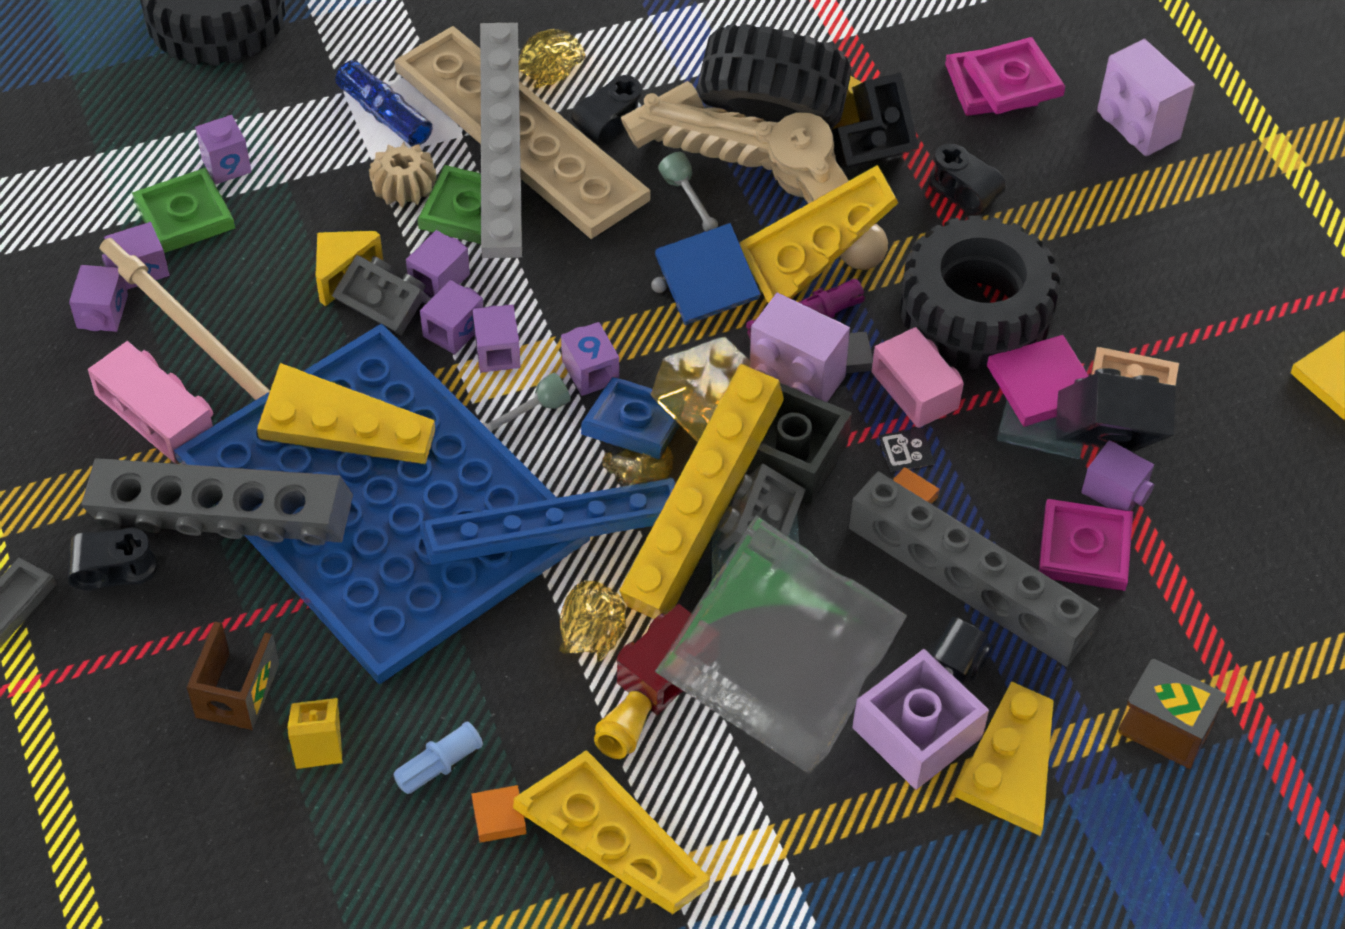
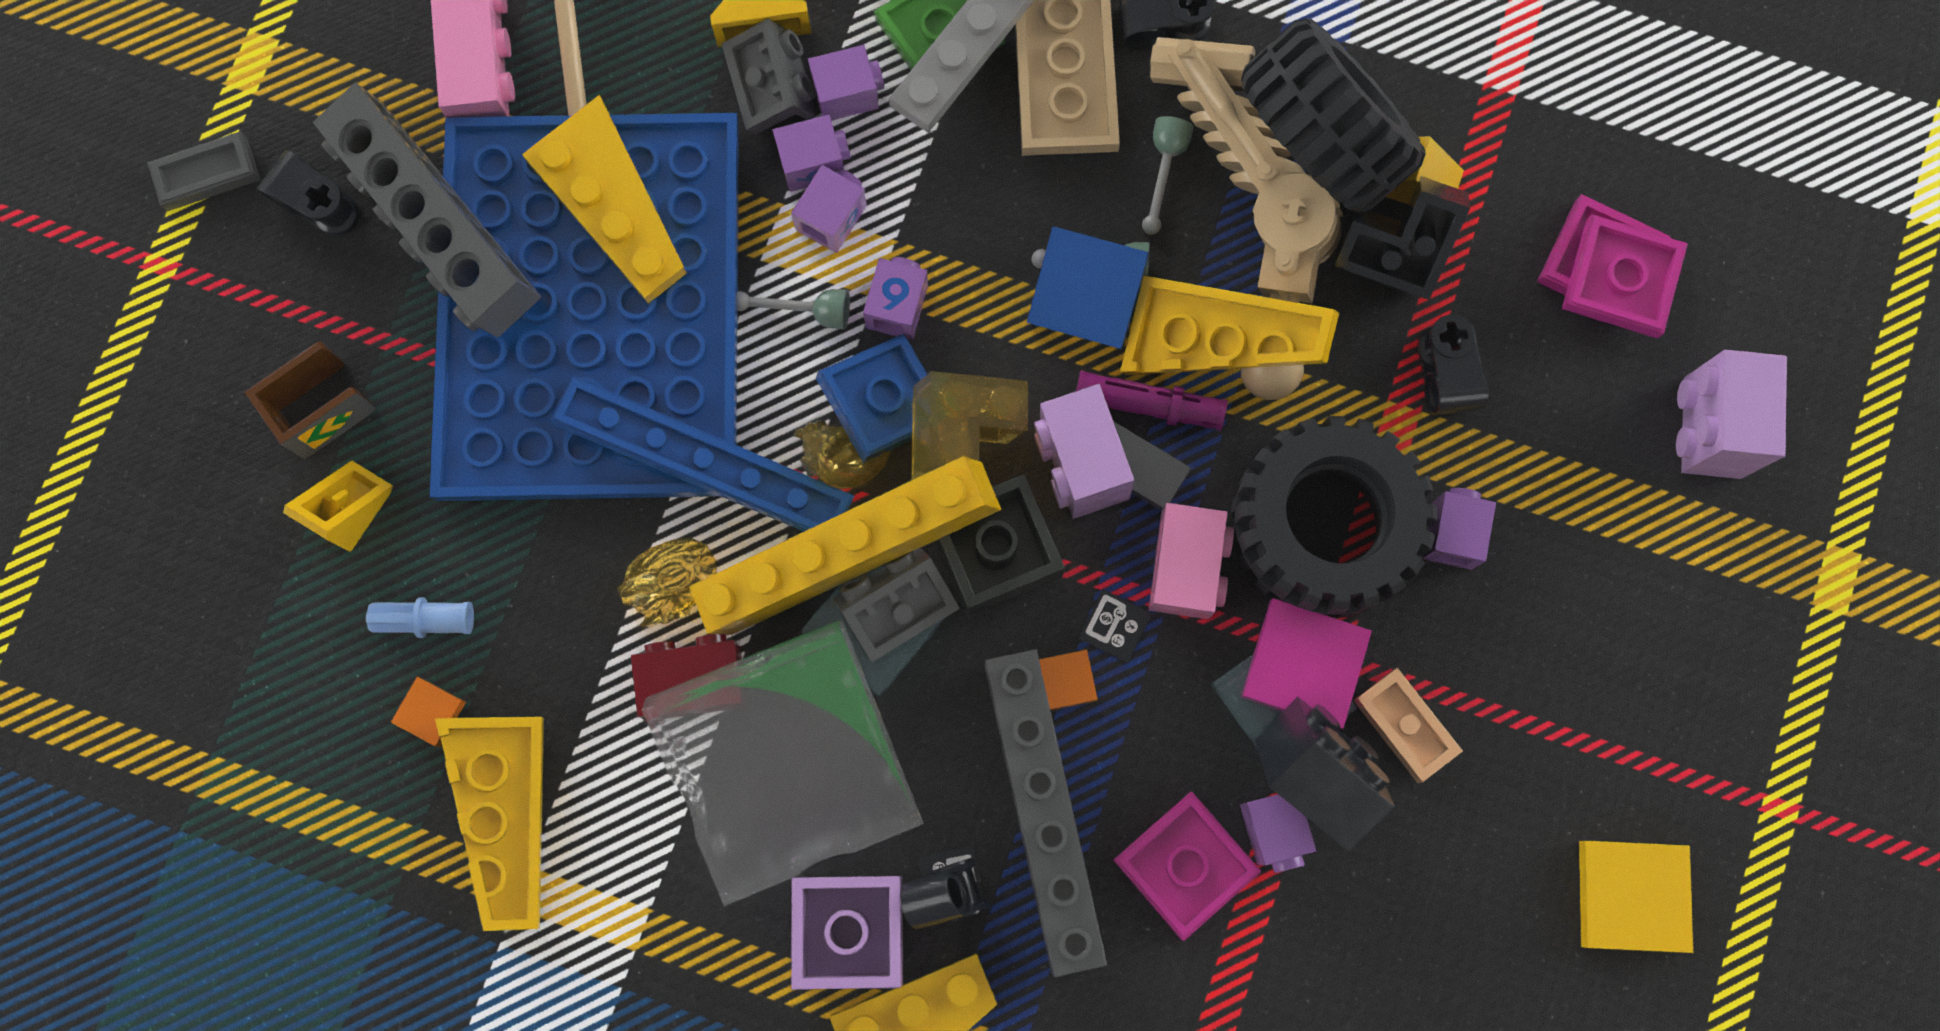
camera: 40 degrees right, 25 degrees up
(621, 728) = (598, 714): yellow cone -> none
(1067, 251) = (1461, 529): none -> medium lavender brick

